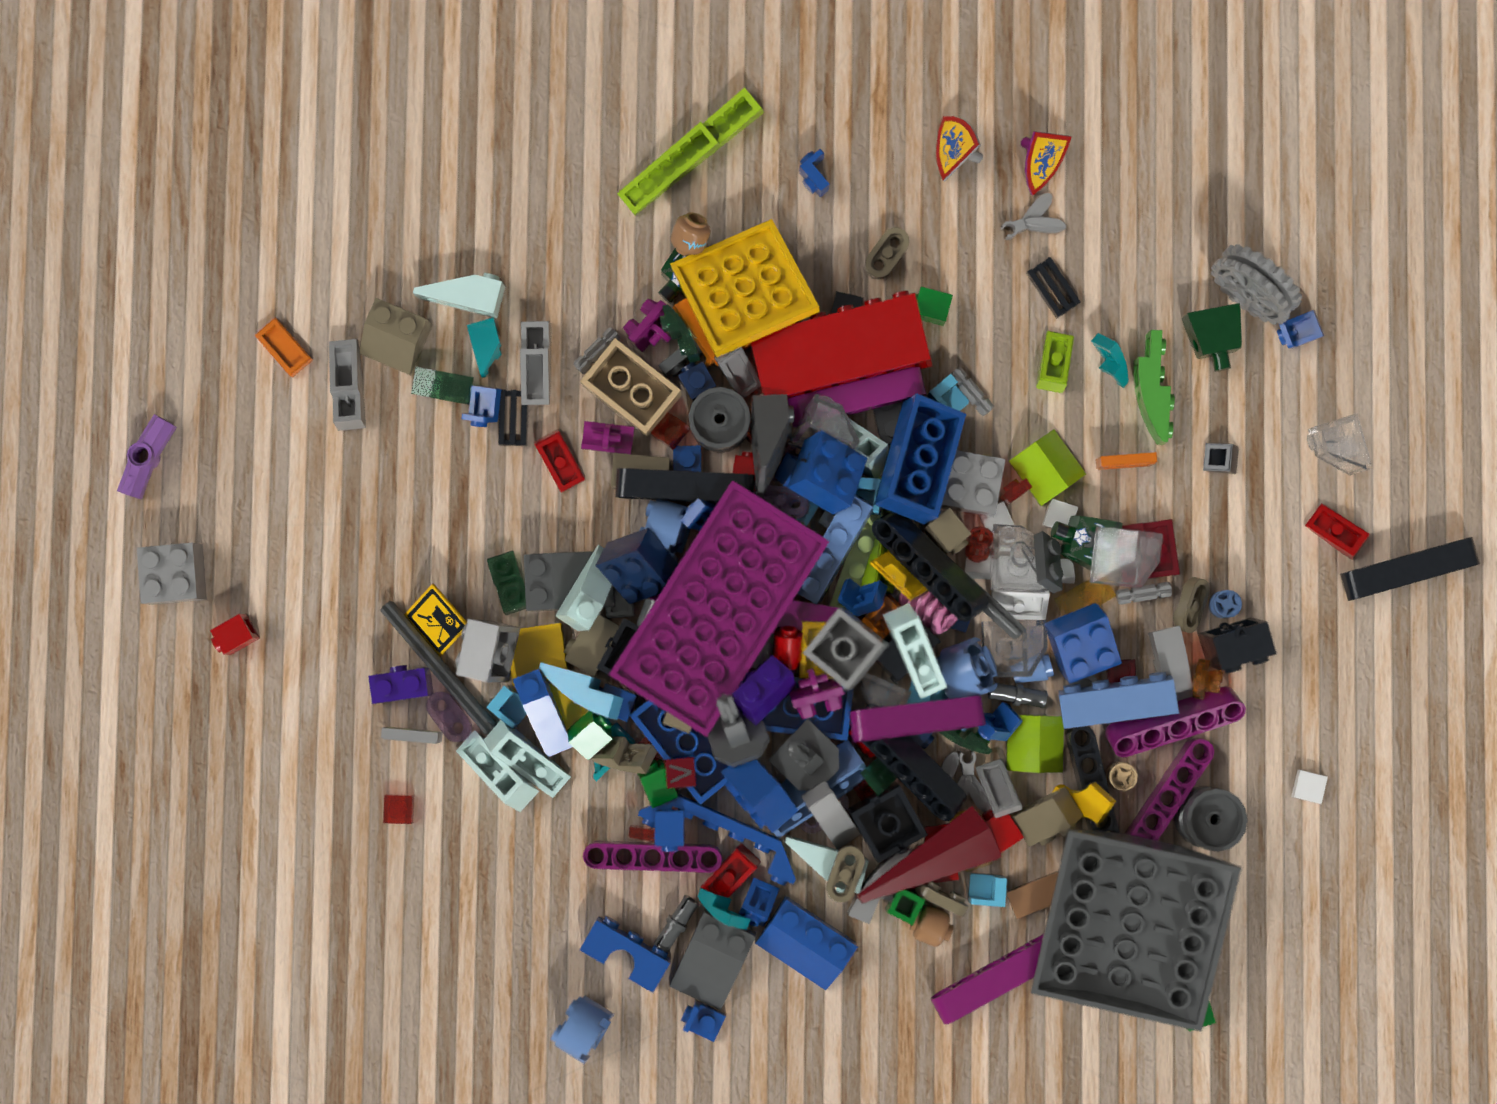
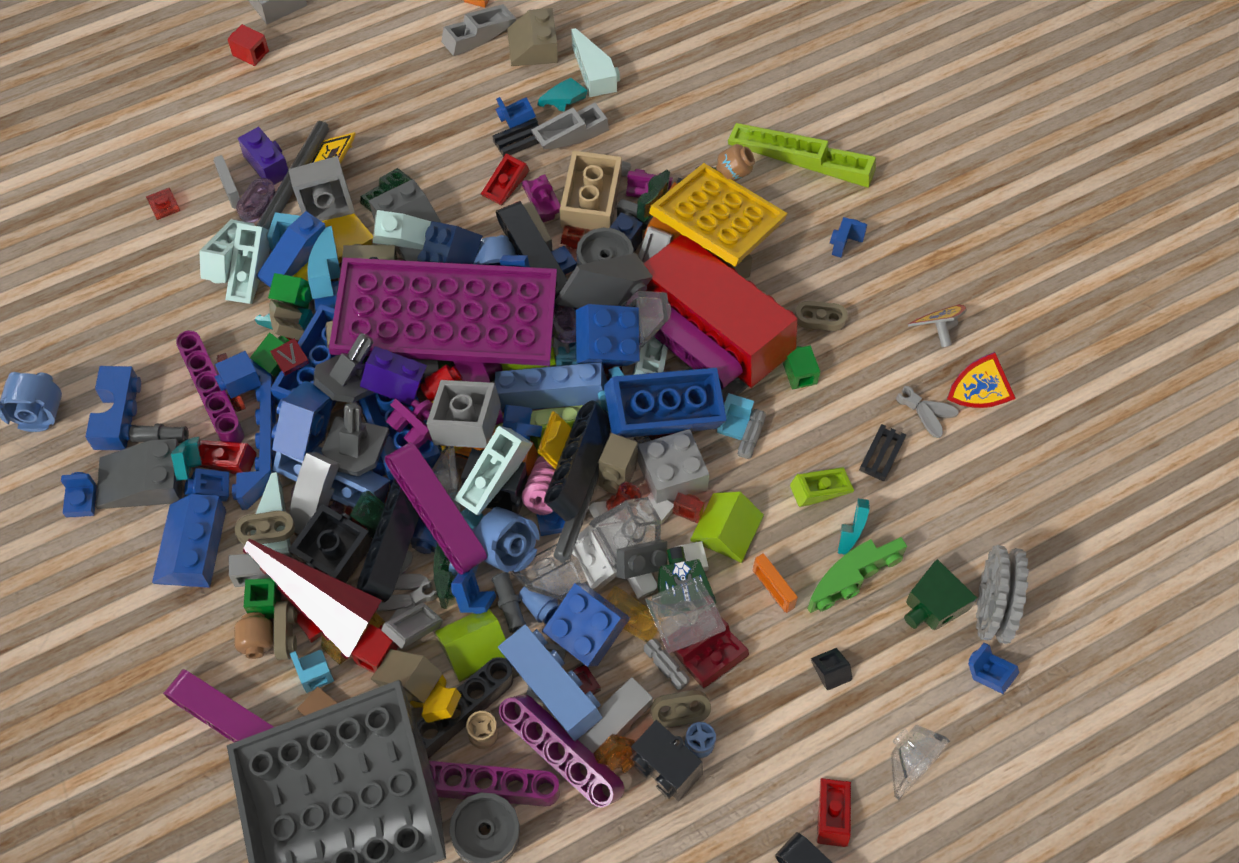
camera: 55 degrees right, 25 degrees down
(442, 385) = (515, 81): clear green slope -> none

